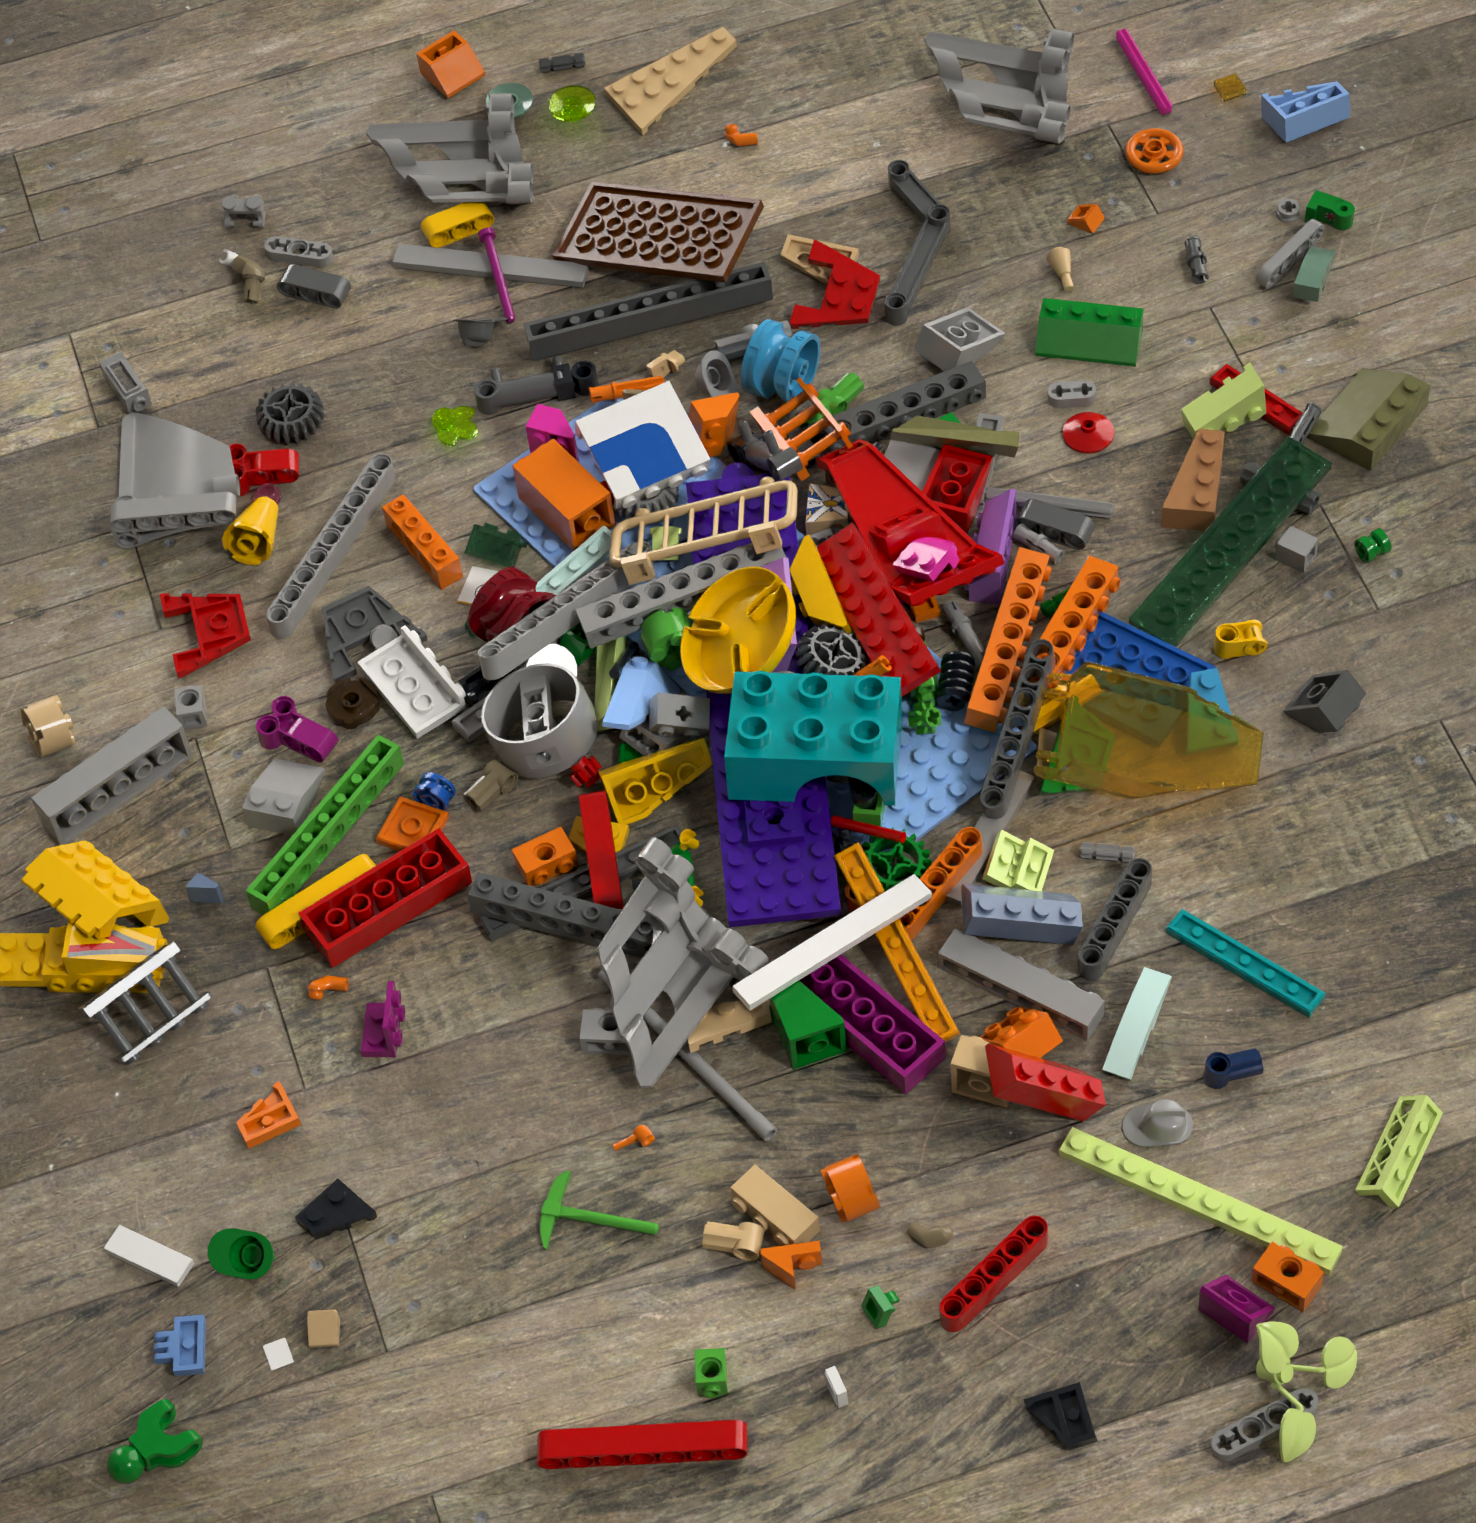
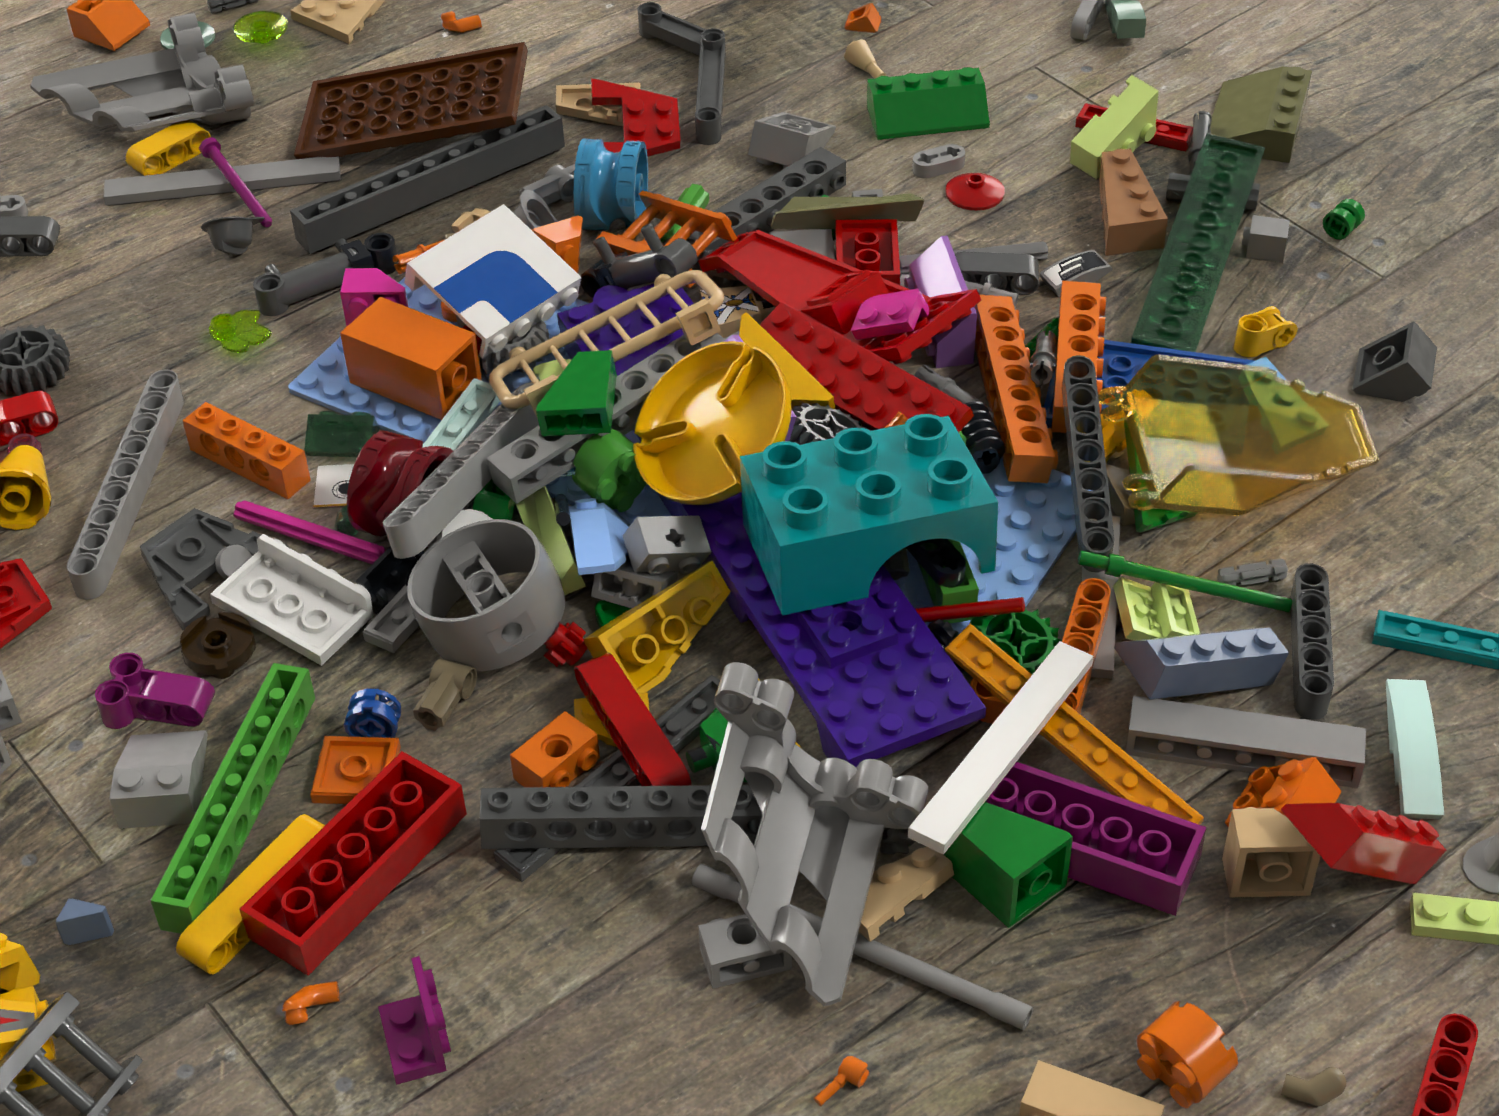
camera: 25 degrees left, 10 degrees down
(440, 621) = (308, 532): none -> dark pink axle
(657, 578) = (580, 397): none -> green slope
(998, 820) = (1117, 565): none -> green bar
(1037, 625) = (1043, 358): none -> dark grey pin
(1126, 537) = (1080, 267): none -> slope
(1196, 260) = (999, 29): dark grey pin -> none

